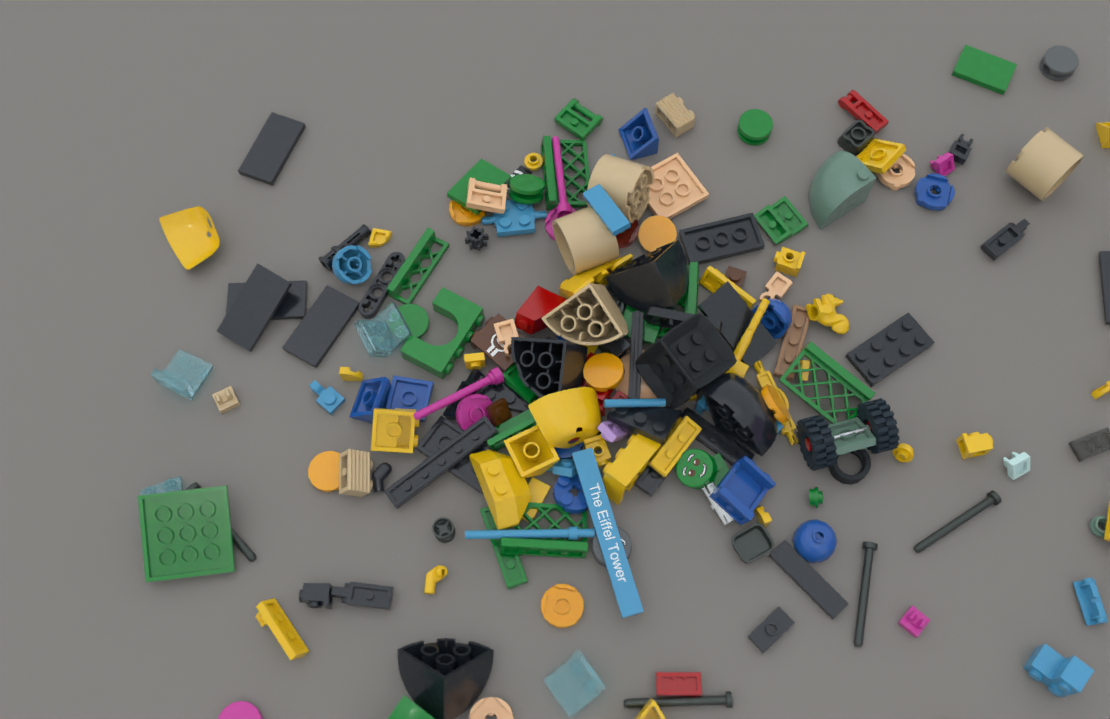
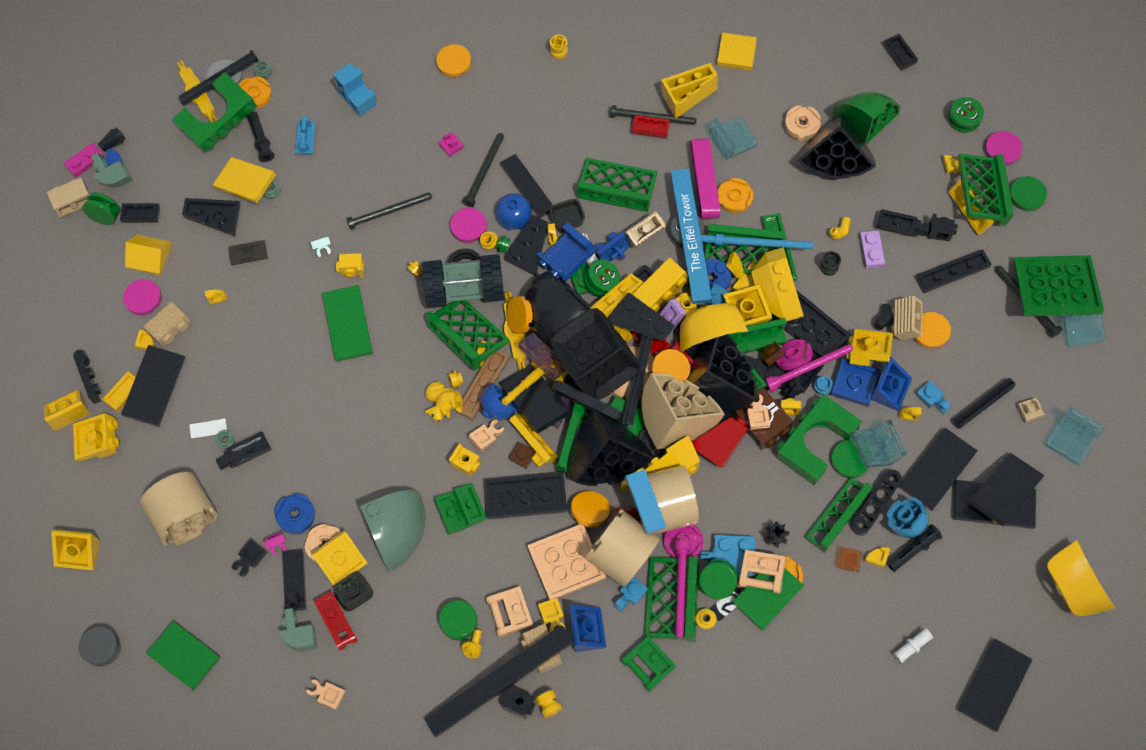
camera: 170 degrees left, 0 degrees up
(213, 663) = (1028, 193): none -> green tile
(246, 650) = (999, 188): none -> green fence
(273, 399) = (984, 403): none -> black axle
(303, 547) = (953, 271): none -> black tile
(303, 690) = (951, 164): none -> yellow tile
(345, 166) = (913, 645): none -> white pin
(397, 560) = (872, 249): none -> lavender plate
(405, 228) = (850, 559): none -> clear orange plate
(440, 462) = (828, 316): black tile -> none
(441, 391) = (823, 385): none -> dark azure plate
(551, 505) = (734, 265): none -> yellow tile
(601, 620) = (705, 178): none -> dark pink beam
(658, 75) = (549, 704): none -> yellow wheel
(659, 402) = (648, 330): dark azure piece -> none
(660, 533) = (644, 230): none -> tan brick
(671, 143) = (551, 613): none -> yellow plate
(684, 72) = (519, 703): none -> black brick
(689, 509) = (614, 248): none -> blue hips
(704, 82) = (498, 681): none -> black tile
(706, 143) = (516, 610): none -> light nougat plate
(708, 579) = (614, 195): none -> green fence
(736, 109) = (473, 649): none -> yellow plate
(747, 367) = (542, 356): none -> plate
(771, 629) = (567, 154): black plate -> none
(786, 504) = (527, 245): none -> black wing
(823, 340) = (455, 379): none -> yellow plate
(833, 500) = (484, 239): none -> yellow plate
(847, 57) = (328, 695): none -> light nougat plate
(861, 518) = (468, 225): none -> dark pink tile
(889, 349) = (394, 363): black plate -> none
(892, 92) = (296, 637): none -> sand green brick
(912, 138) = (294, 580): none -> black hinge
(954, 384) = (347, 323): none -> green tile
(1030, 244) = (222, 435): none -> sand green plate
(1050, 259) = (207, 428): none -> white sticker

